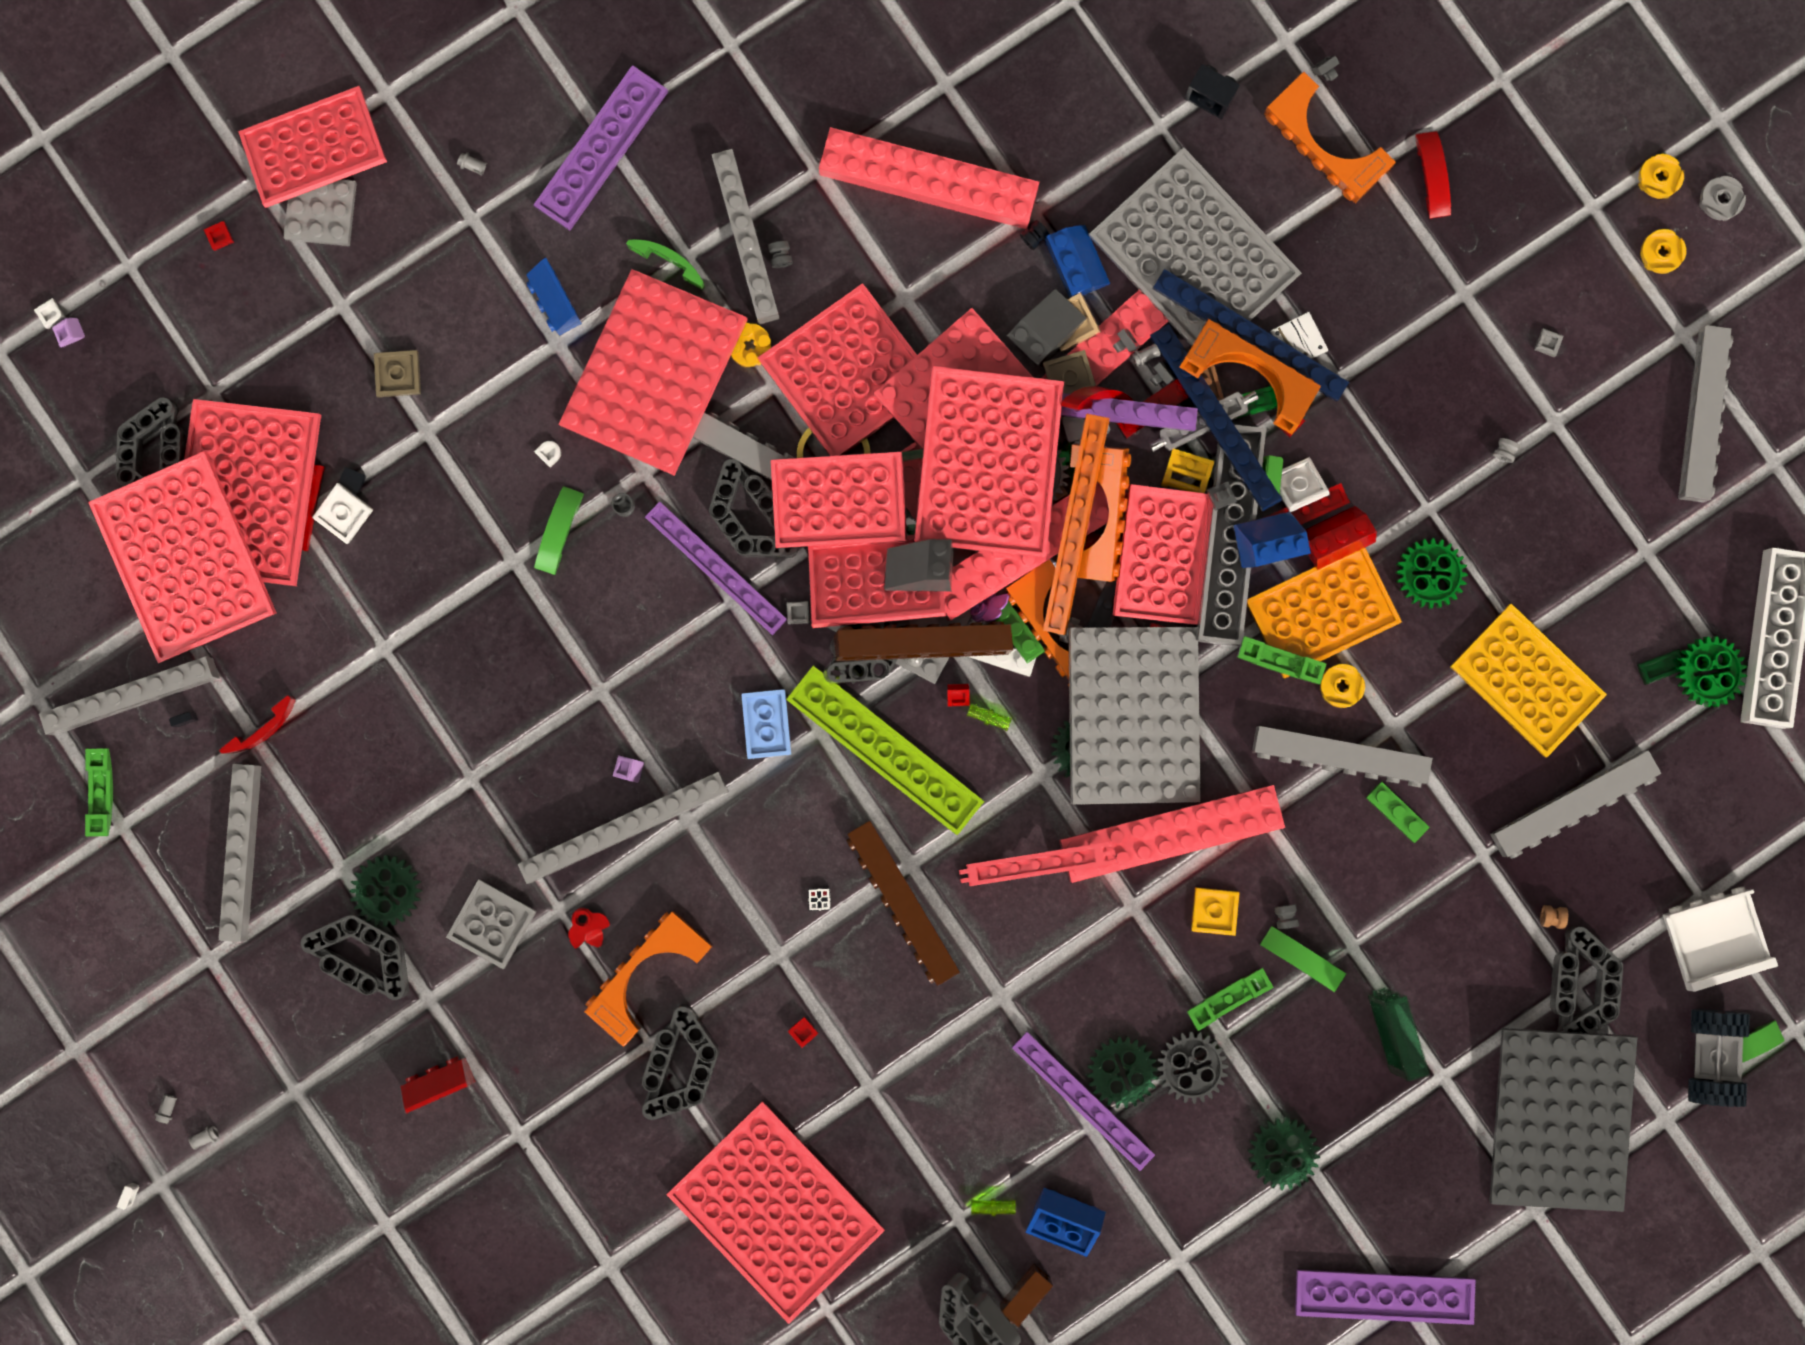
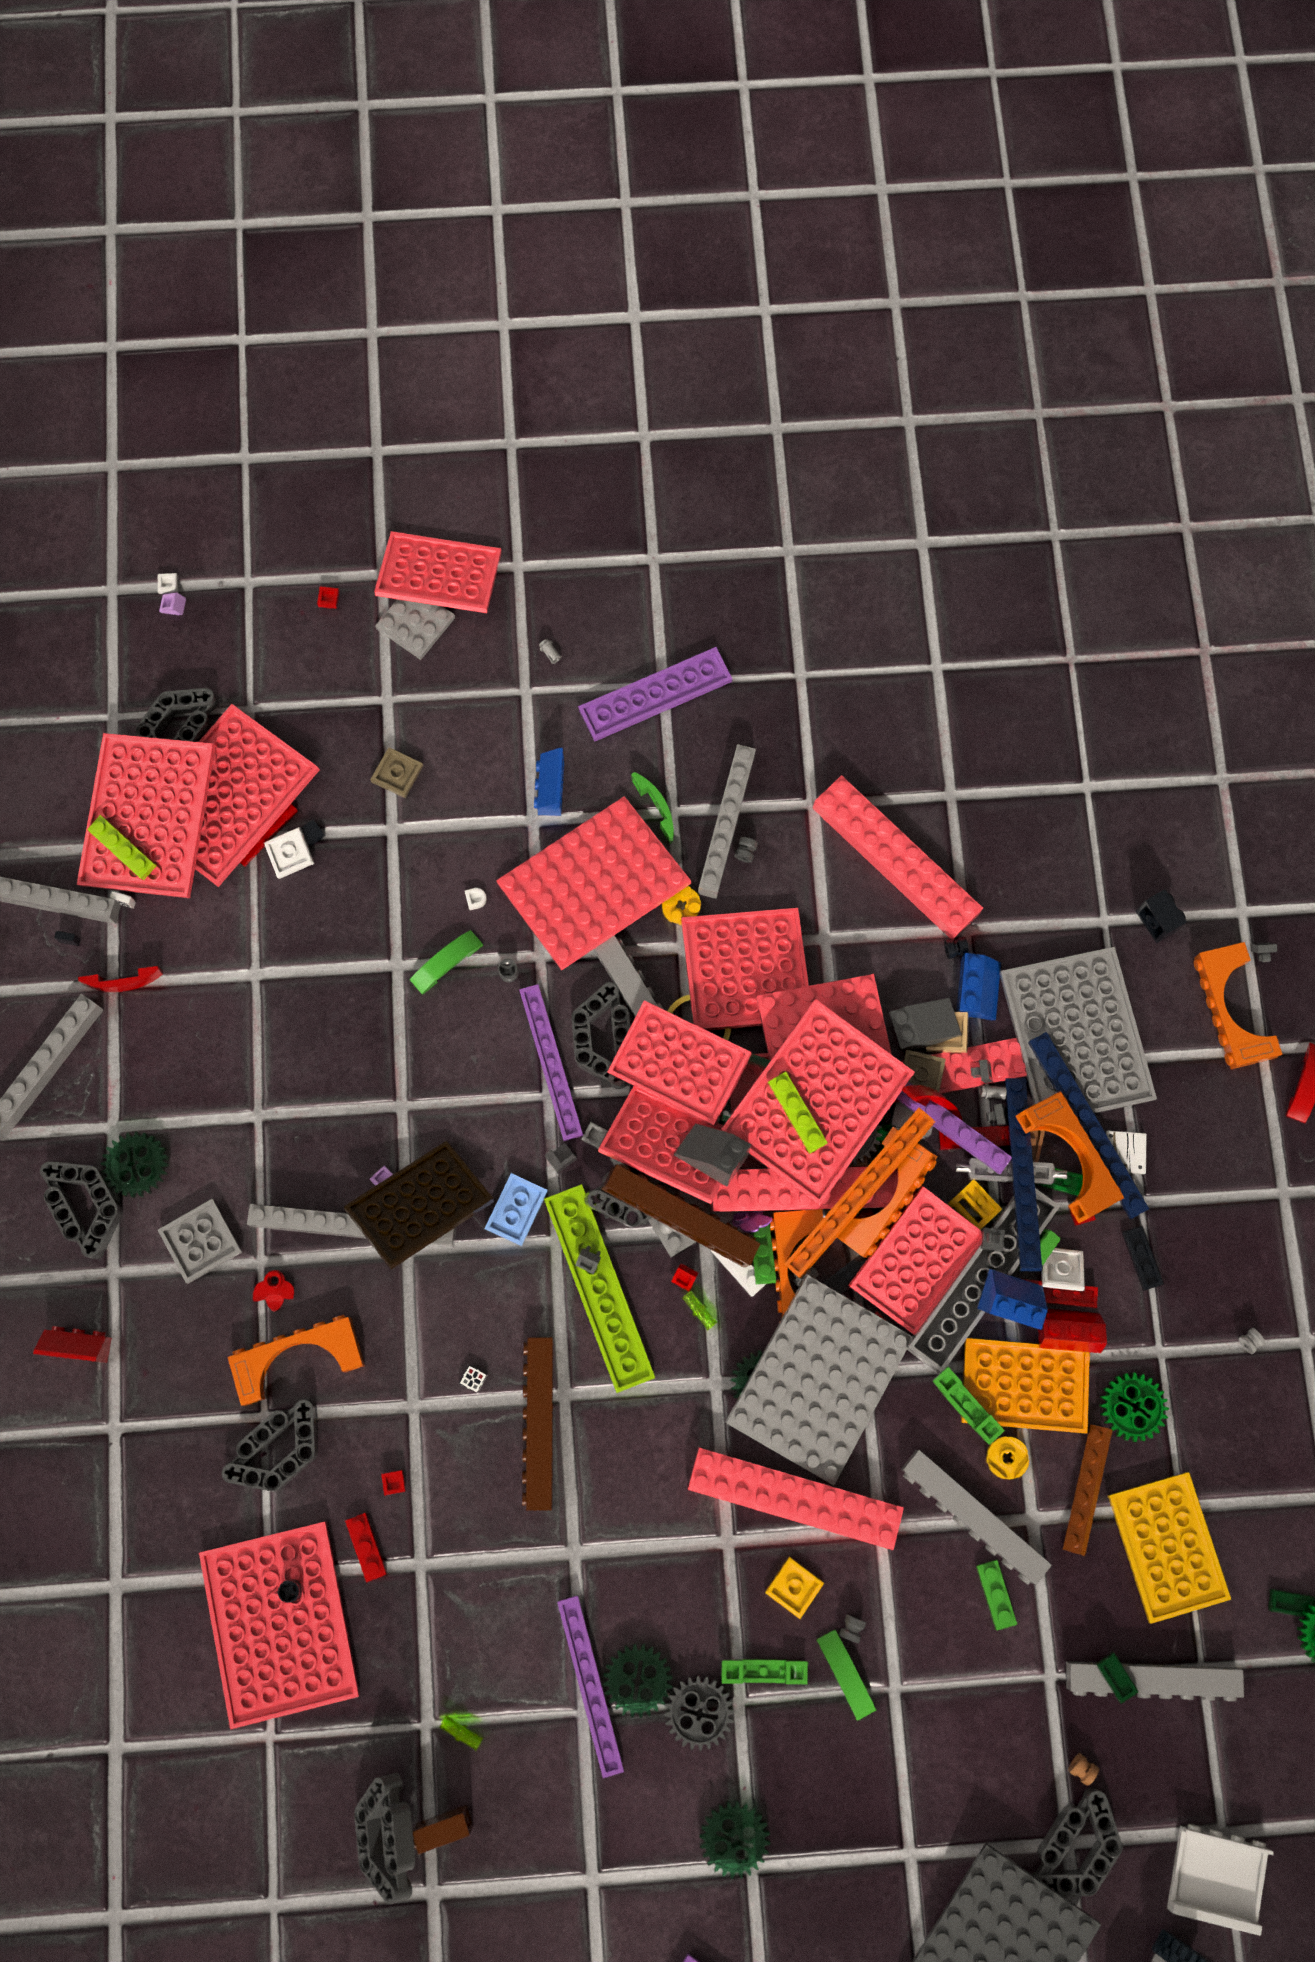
camera: 25 degrees right, 10 degrees down
(179, 602) = (122, 847): none -> lime plate
(212, 651) = (123, 899): none -> white tile
(674, 772) = (418, 1204): none -> dark brown plate
(768, 1182) = (286, 1592): none -> black wheel
(779, 652) = (560, 1158): none -> flat silver panel
(812, 1102) = (366, 1547): none -> red plate
(861, 732) = (588, 1260): none -> dark grey tile
(976, 484) = (797, 1112): none -> lime plate
(1038, 864) = (669, 1457): coral hinge -> none
(1065, 1222) = (514, 1784): blue slope -> none
(1367, 431) = (1142, 1258): none -> black tile
(1398, 1034) = (892, 1792): clear green window -> none
(1429, 672) = (1087, 1490): none -> dark orange plate
(1541, 822) = (1116, 1677): none -> dark green tile

